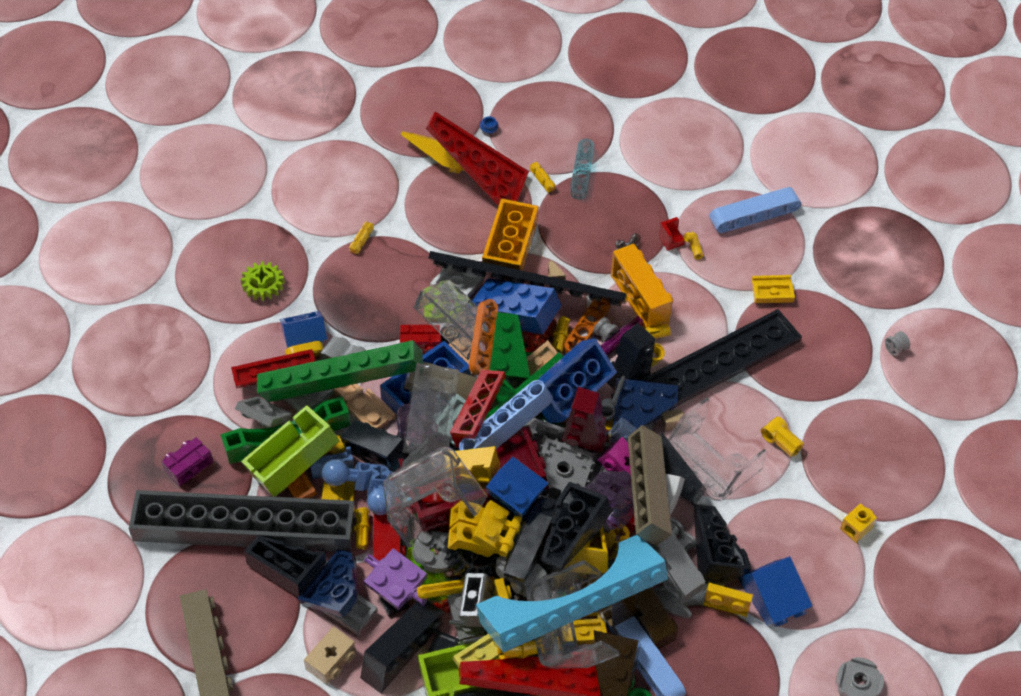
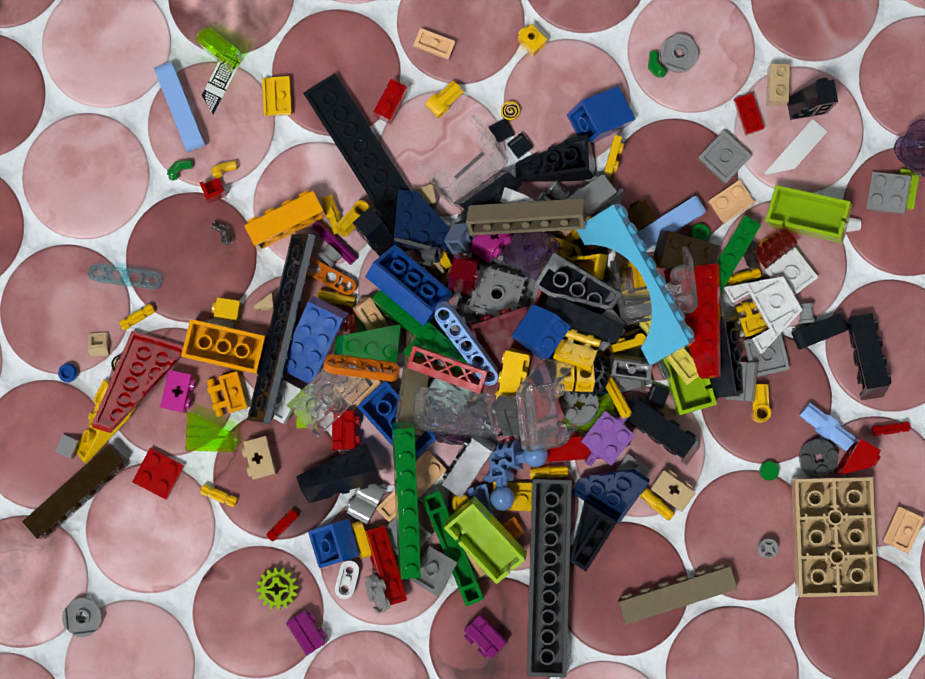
camera: 85 degrees left, 30 degrees up
(214, 304) = (307, 632): none -> magenta brick
(244, 356) = (375, 591): none -> light grey plate
(257, 141) = (74, 609): none -> light grey plate
(265, 340) = (347, 579): none -> white plate
(313, 639) = (657, 504): none -> yellow axle
(326, 288) = (282, 525): none -> red axle
(370, 322) = (340, 475): none -> black wedge
(375, 128) = (75, 491): none -> dark brown brick
(387, 192) = (158, 473): none -> red plate
(396, 268) = (266, 466): none -> tan brick
(416, 126) = (67, 446): none -> light grey slope
(422, 227) = (207, 436): none -> clear neon green slope
(464, 248) = (232, 392): none -> light orange plate
(467, 204) = (170, 399): none -> dark pink brick
(516, 148) = (98, 344): none -> tan slope
(549, 244) = (227, 309): none -> yellow brick
(695, 210) = (176, 167): none -> green arm
(734, 510) = (520, 146): none -> black tile
(750, 493) = (501, 130): none -> black tile
(774, 502) = (510, 111): none -> tile
(775, 385) = (390, 101): none -> red brick
(785, 246) = (217, 86): none -> sticker
(815, 240) = (219, 49): none -> clear neon green slope
(840, 653) = (654, 67): none -> green arm
(843, 429) = (434, 43): none -> light nougat plate

